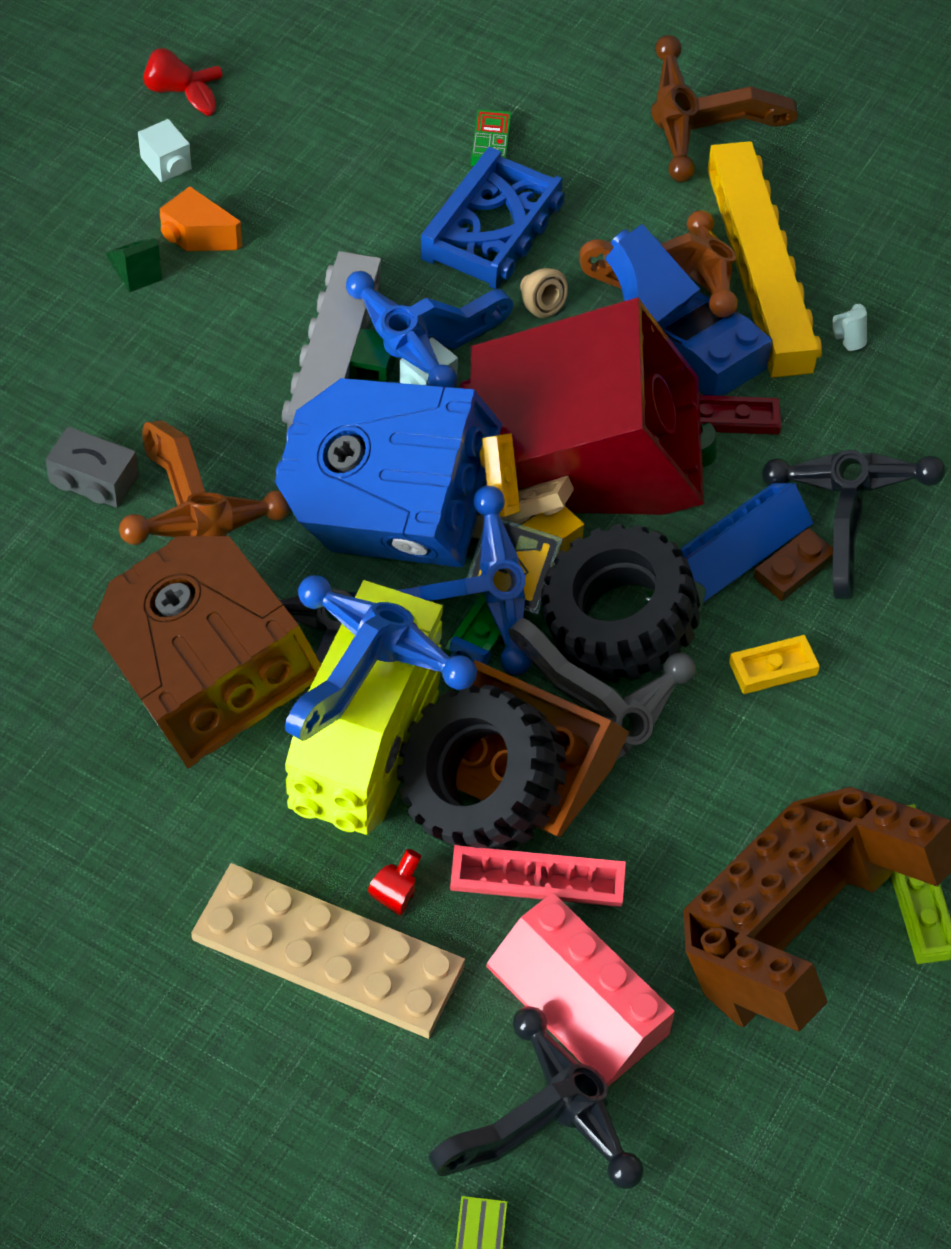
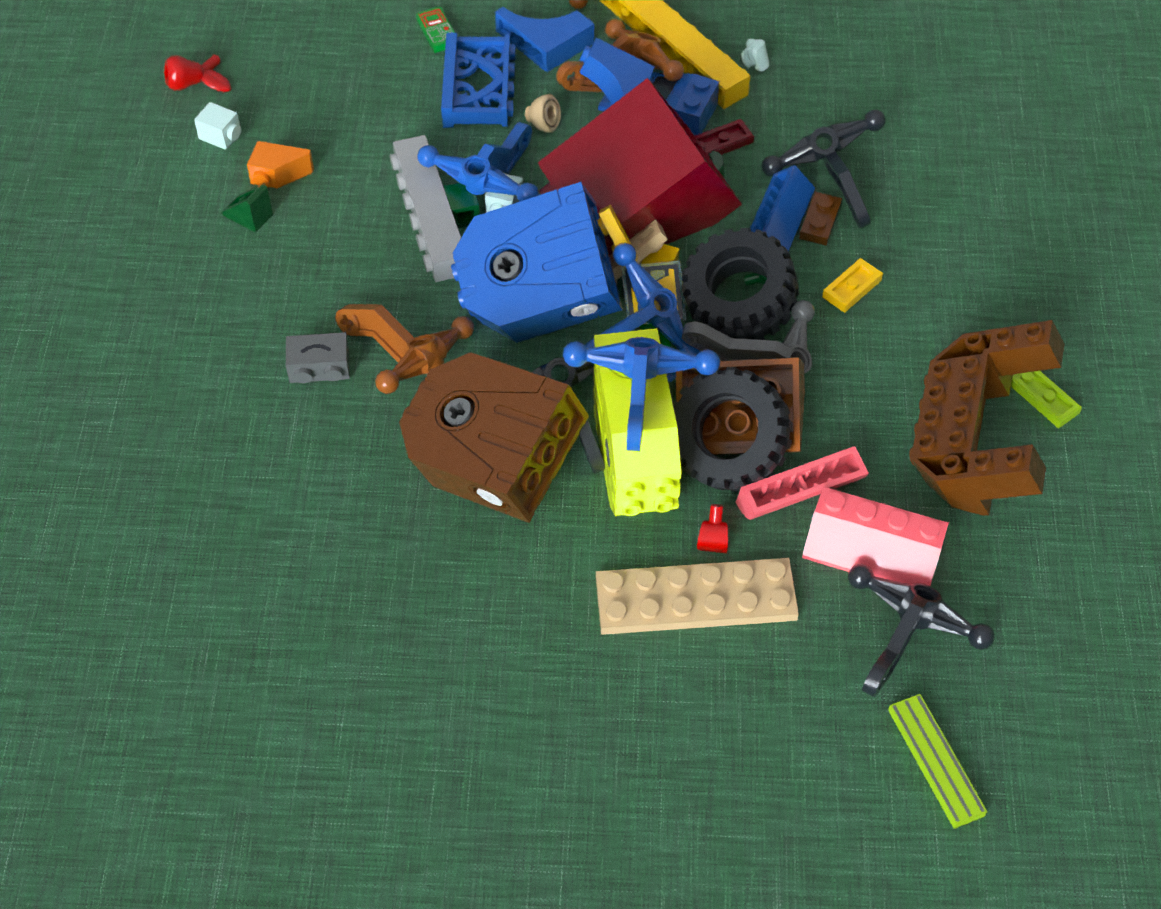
camera: 25 degrees left, 0 degrees up
(611, 203) = (546, 40): none -> blue arch

